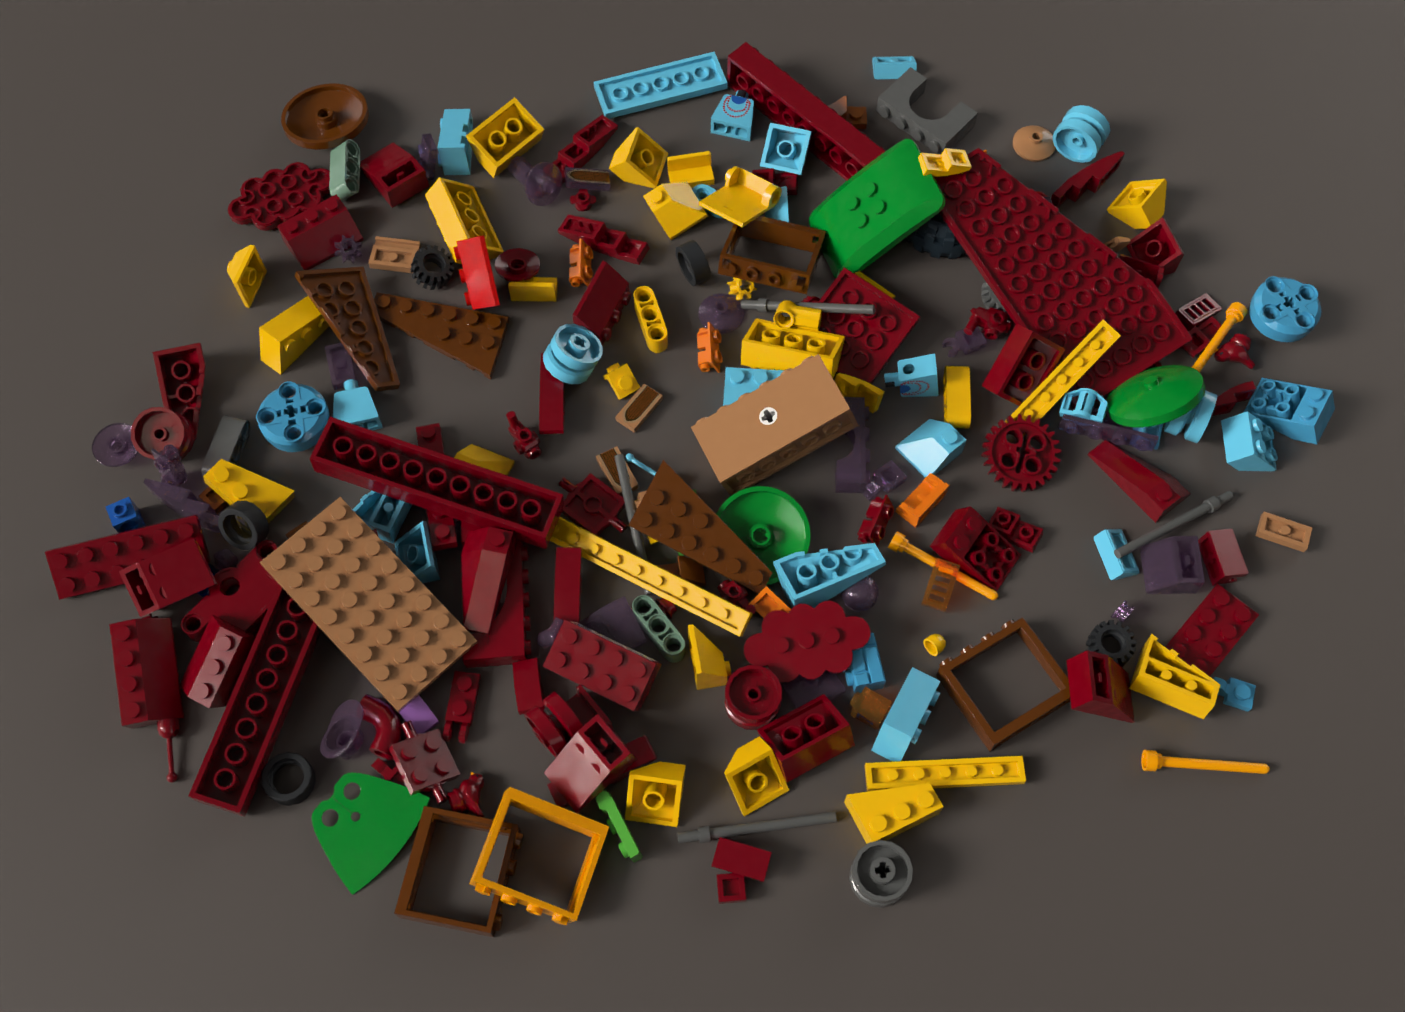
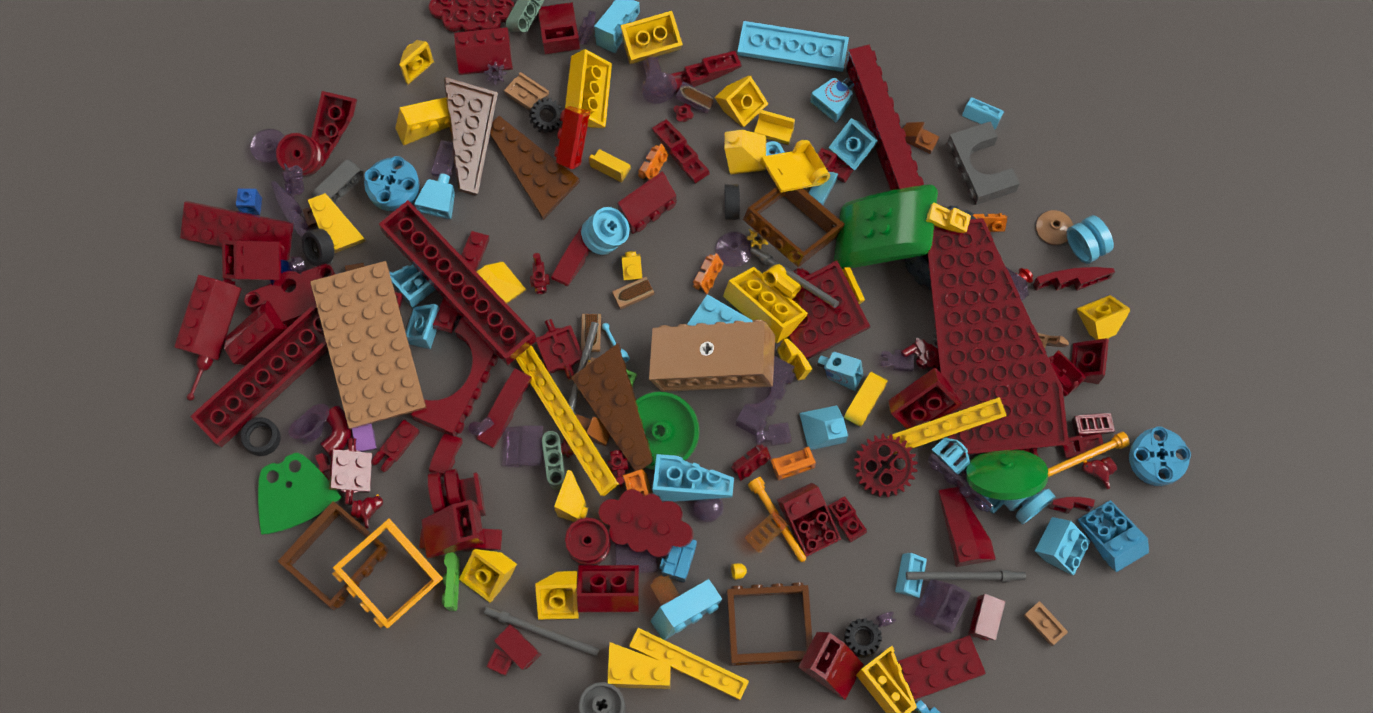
camera: 30 degrees right, 5 degrees up
(484, 572) = (458, 359): dark red wedge -> none
(517, 264) = (607, 136): dark red dish -> none
(602, 665) = (500, 466): dark red brick -> none
(650, 328) = (678, 221): yellow beam -> none

